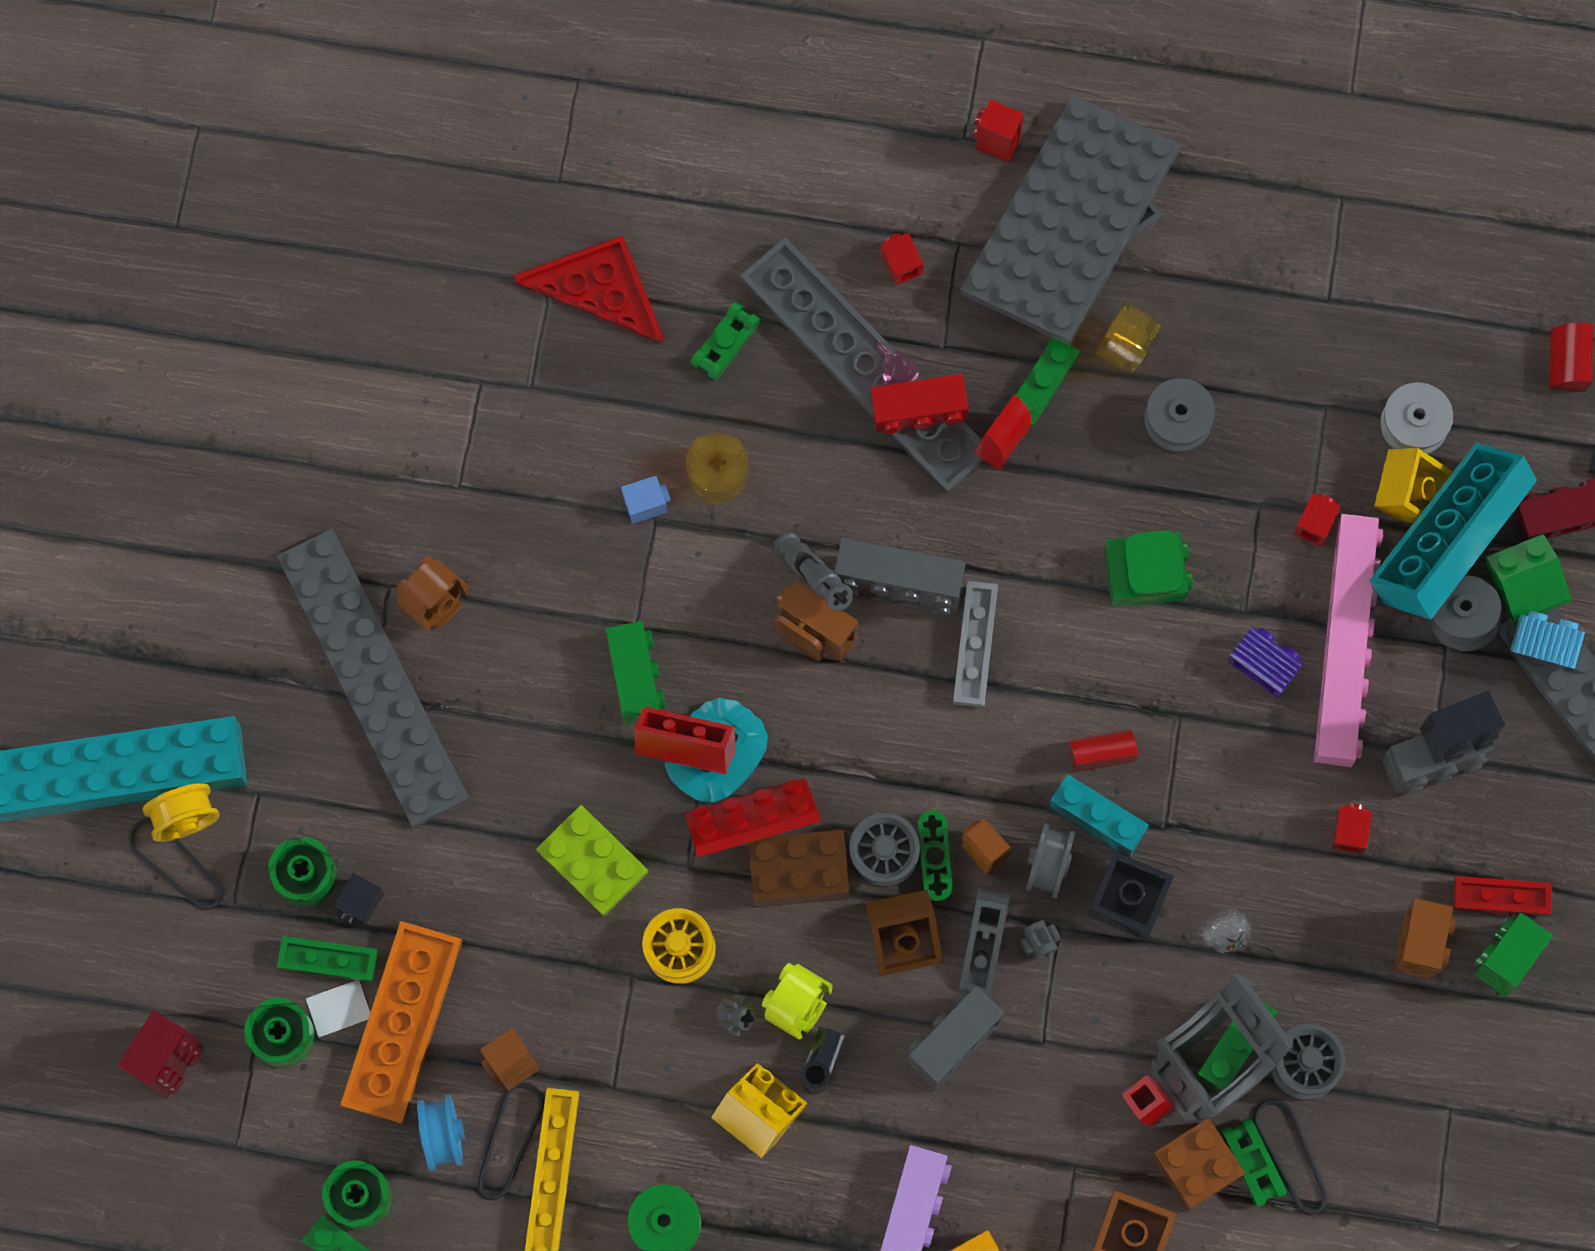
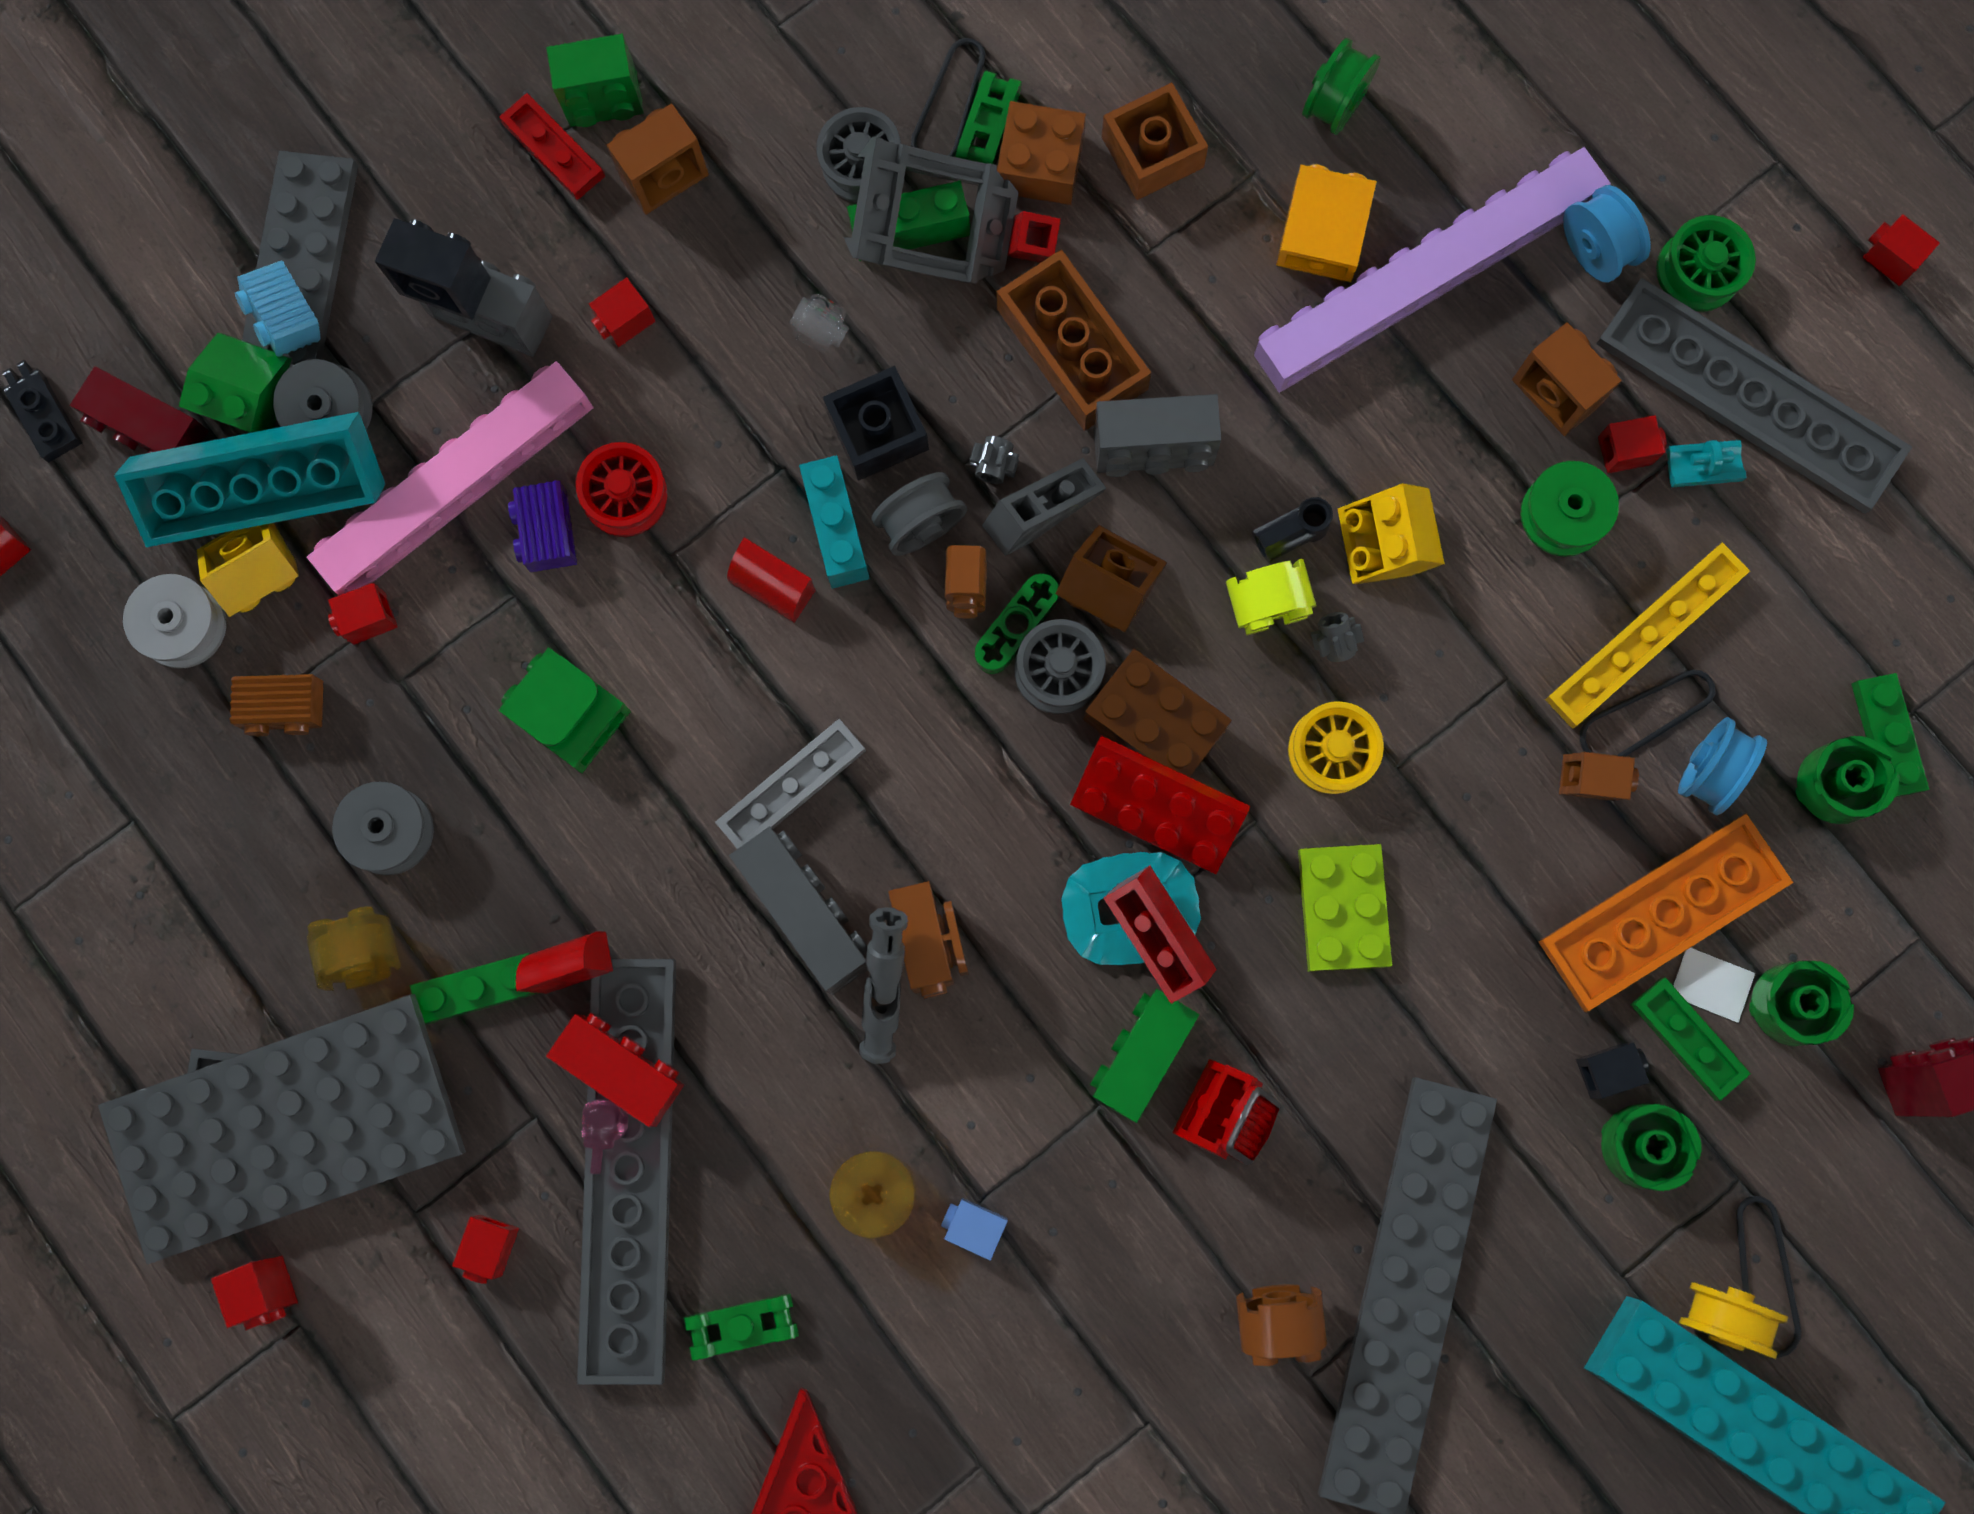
camera: 135 degrees left, 5 degrees up
(557, 679) = (1228, 1113): none -> red piece
(1062, 1056) = (1072, 338): none -> dark orange brick
(1242, 723) = (621, 489): none -> red wheel
(1312, 428) = (276, 703): none -> dark orange brick

